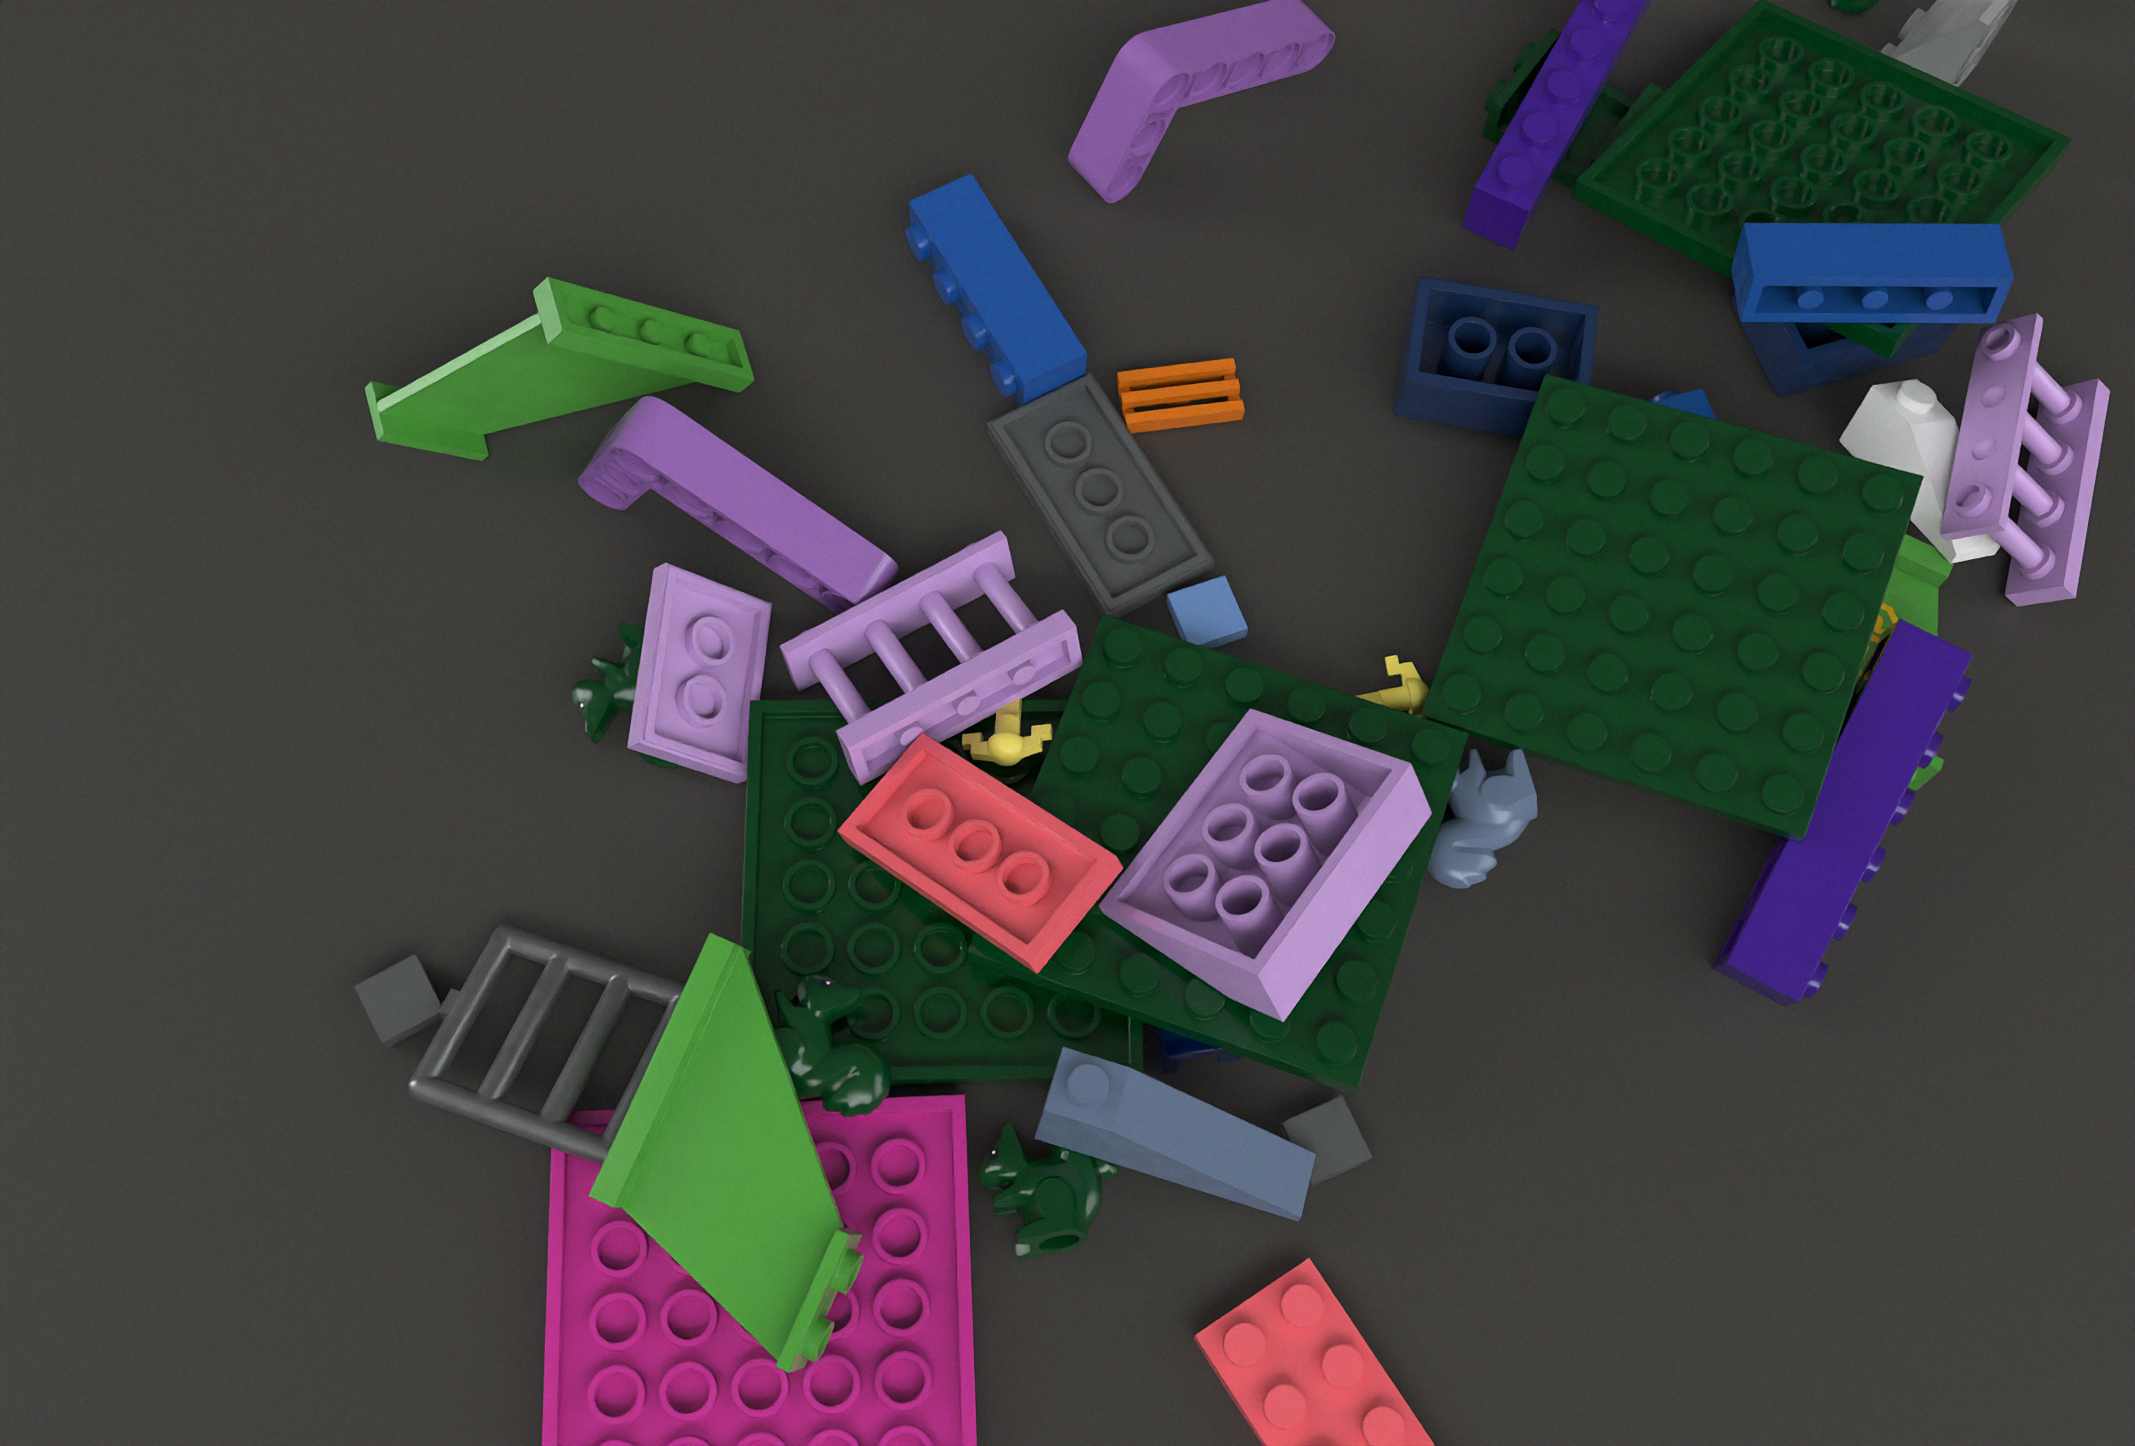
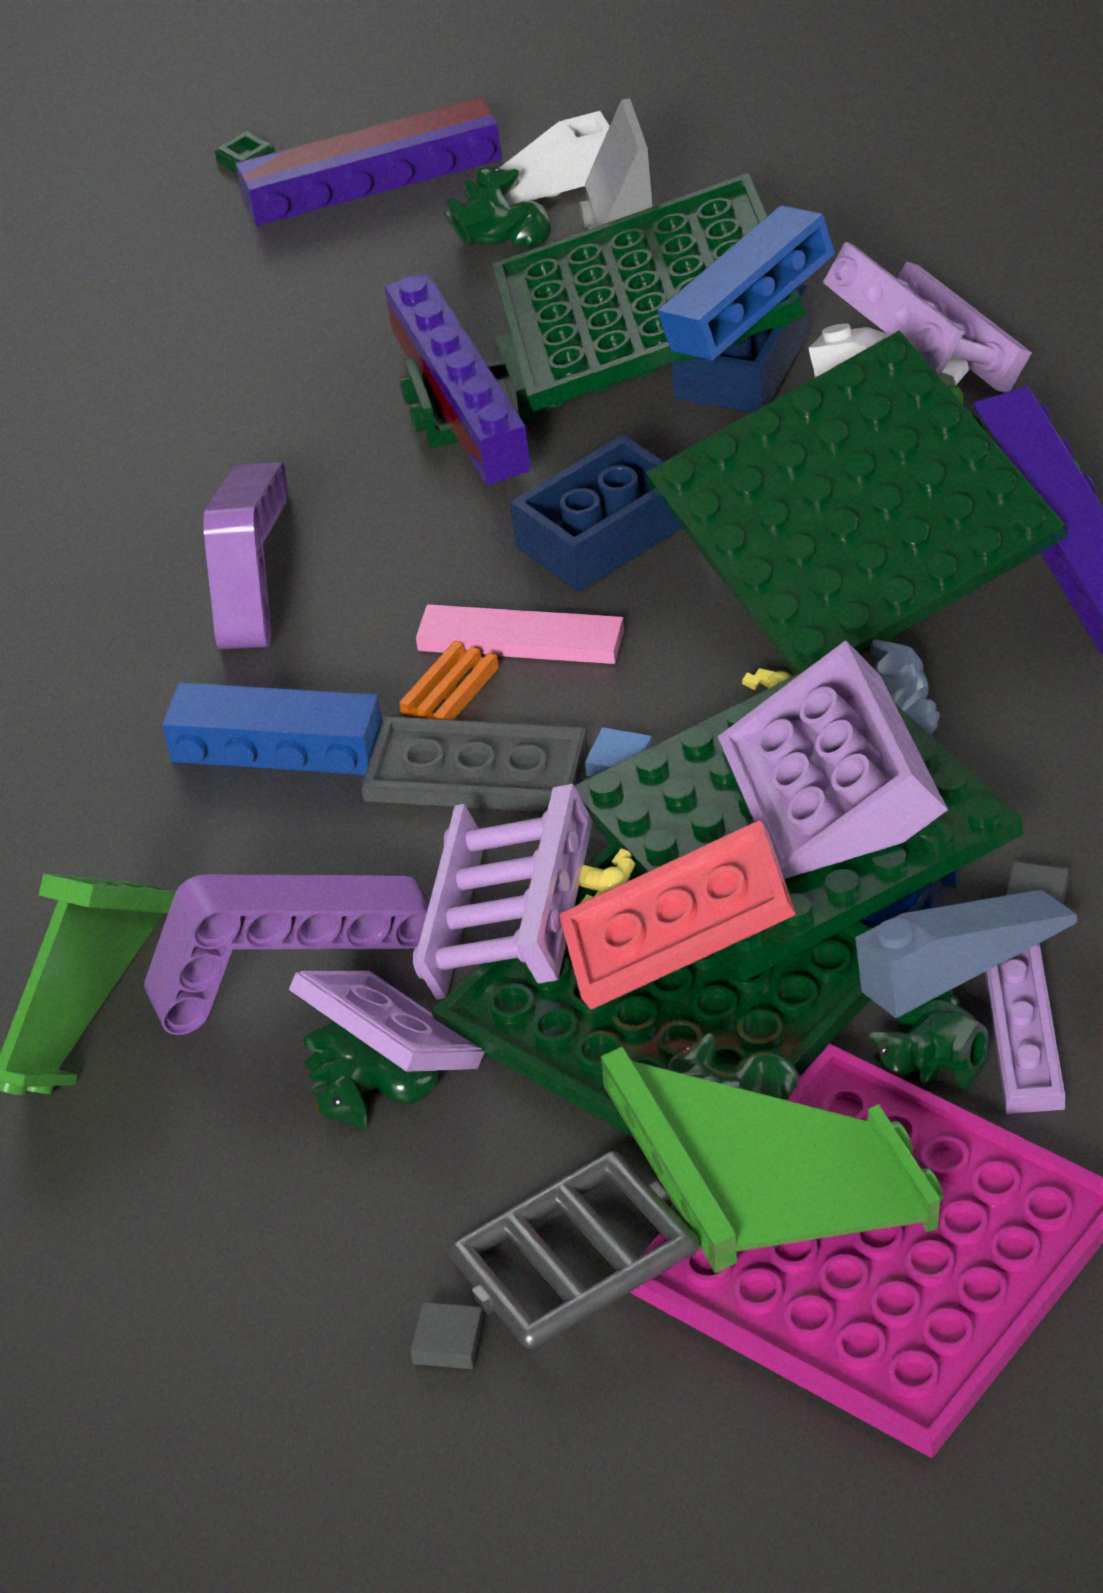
camera: 40 degrees left, 25 degrees down
(1127, 1267) = (1025, 1034): none -> lavender tile
(1296, 408) = (522, 633): none -> bright pink tile

